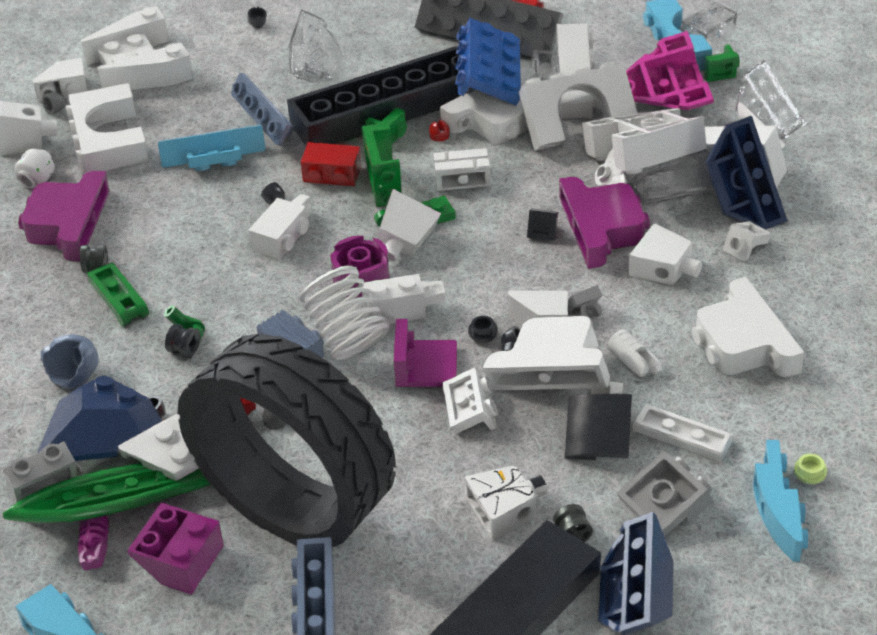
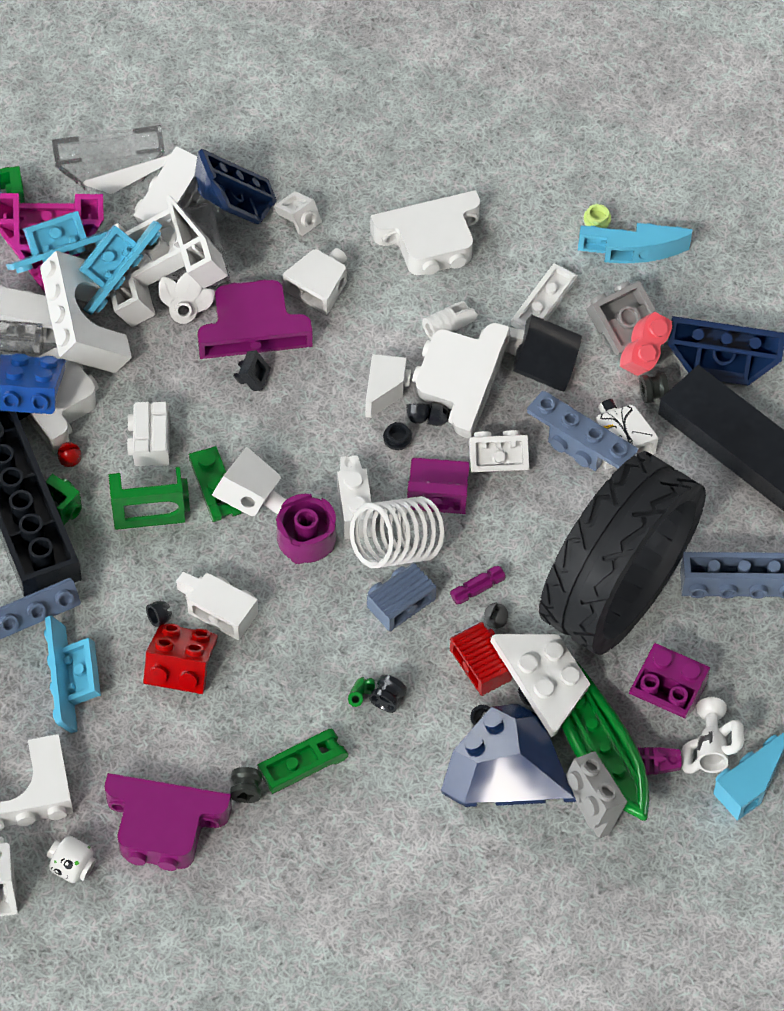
camera: 90 degrees left, 15 degrees up
(69, 360) = (413, 792): sand blue hair -> none
(98, 581) = (712, 743): none -> white piece
(228, 205) = (179, 658): none -> red bracket
(331, 164) = (120, 555): red brick -> none
(491, 453) = (579, 435): none -> sand blue bracket
(585, 300) = (372, 344): light grey tile -> none
(616, 504) = (646, 343): none -> coral brick
(626, 101) = (112, 259): none -> medium azure bracket
(652, 74) = (57, 234): none -> medium azure bracket

